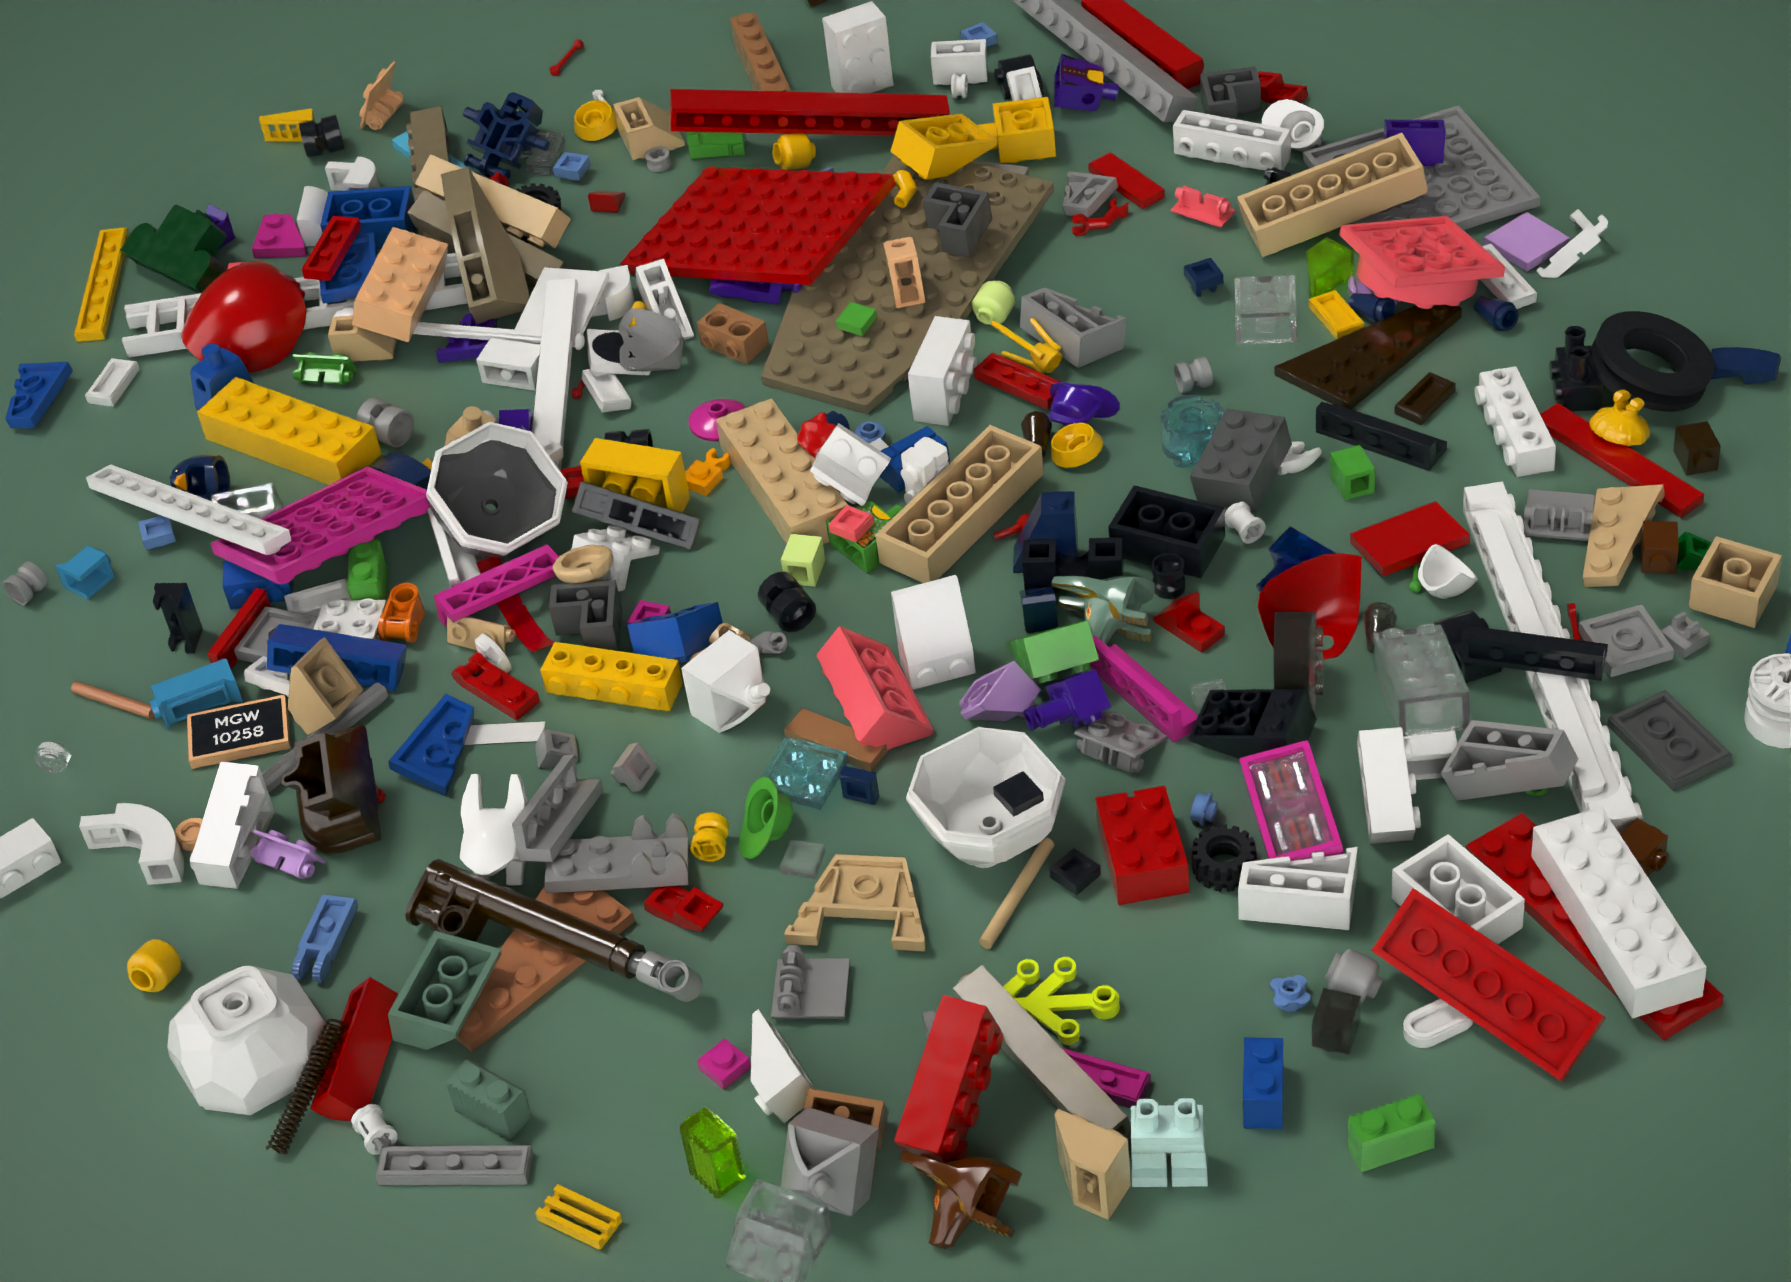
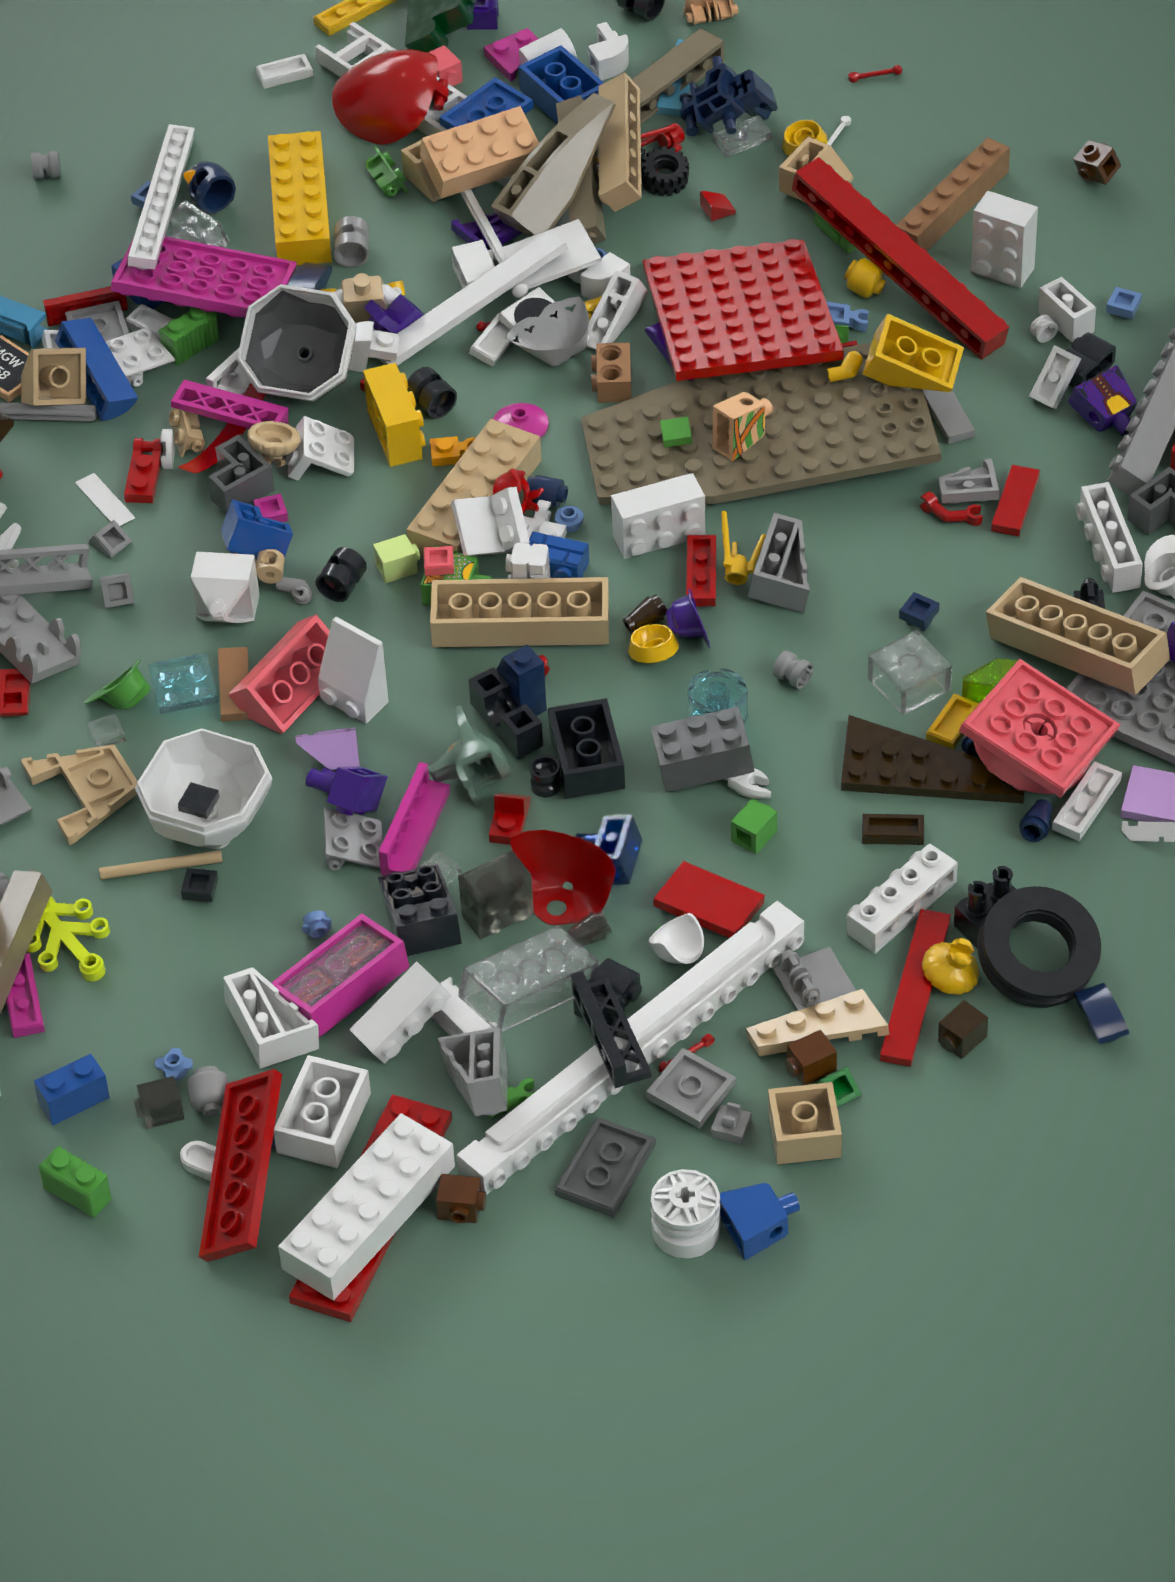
camera: 50 degrees right, 5 degrees up
(35, 392) = (241, 38): blue wing -> none
(86, 572) = (82, 188): dark azure window -> none
(179, 614) = (65, 262): black hinge -> none
(215, 373) = (323, 117): blue torso -> none
(331, 248) = (485, 88): red plate -> none
(402, 614) = (167, 376): orange piece -> none
(435, 745) = (62, 473): blue wing -> none
(571, 166) = (735, 160): medium blue plate -> none
(612, 676) = (190, 517): yellow brick -> none
(636, 515) = (364, 437): black slope -> none
(658, 159) = (791, 205): light grey bush -> none
(709, 837) = (82, 668): yellow wheel -> none
(859, 785) = (190, 715): dark blue tile -> none
(958, 215) = (826, 422): dark grey brick -> none
(993, 302) = (776, 499): yellowish green head -> none
(1022, 130) = (1007, 397): yellow brick -> none
(1039, 609) = (442, 716): dark blue slope -> none
(1054, 651) = (396, 748): bright green slope -> none
(1142, 845) = (248, 907): red piece -> none
(1211, 210) = (1015, 561): coral hinge -> none
(1221, 842) = (271, 947): black tyre -> none
(1248, 526) = (643, 790): white bush -> none
(1379, 436) = (813, 820): black fence -> none

